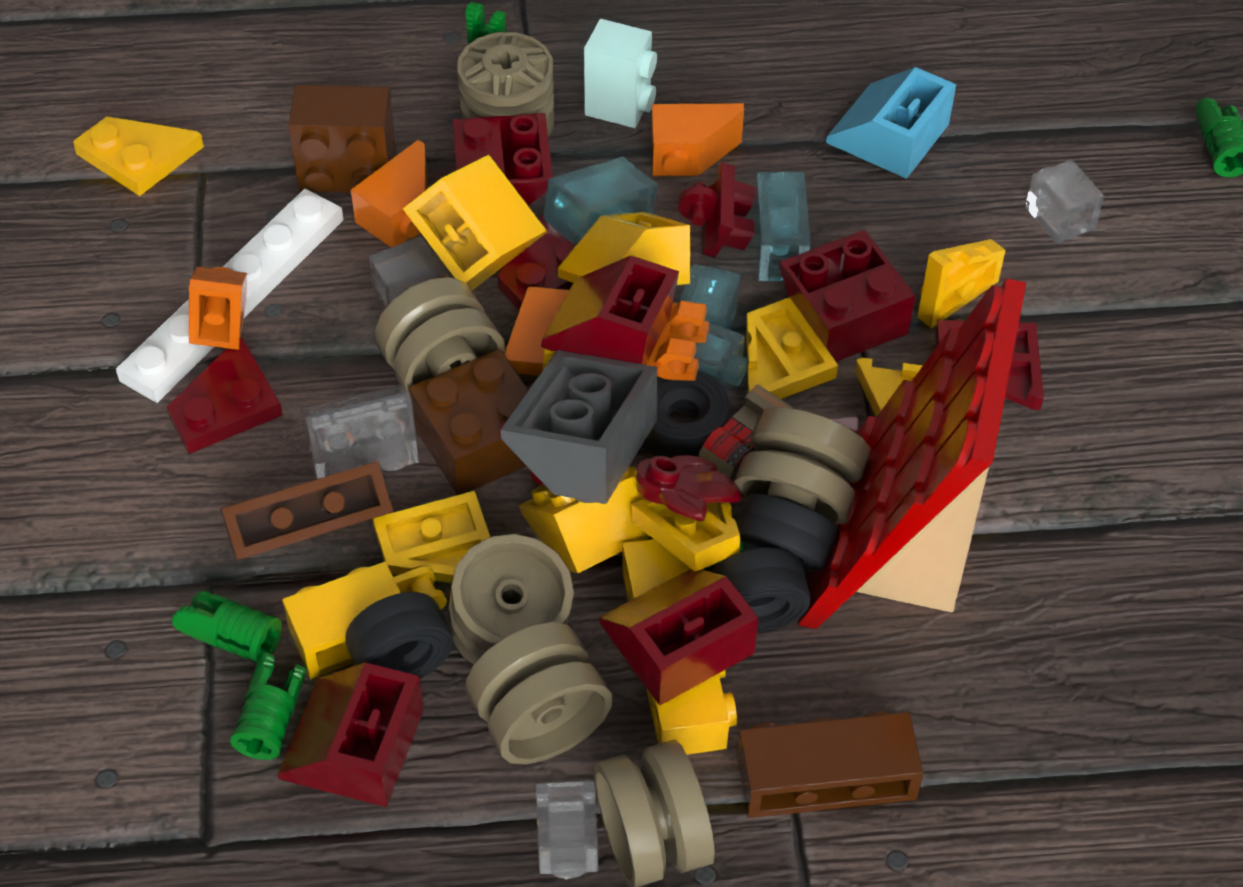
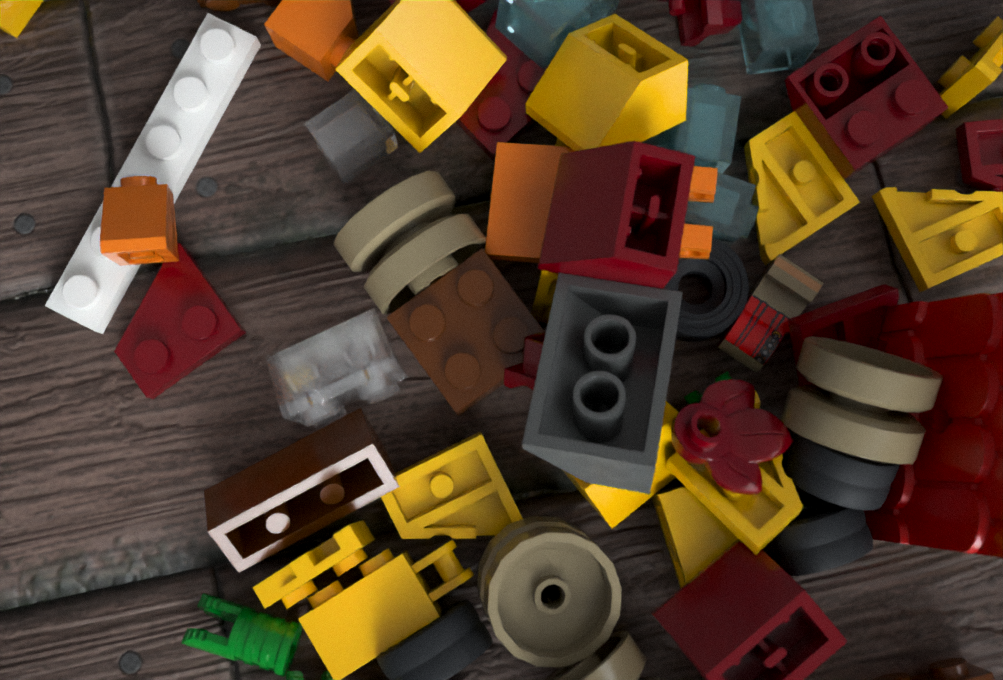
camera: 10 degrees left, 30 degrees up
(305, 563) = (295, 580): none -> yellow wing

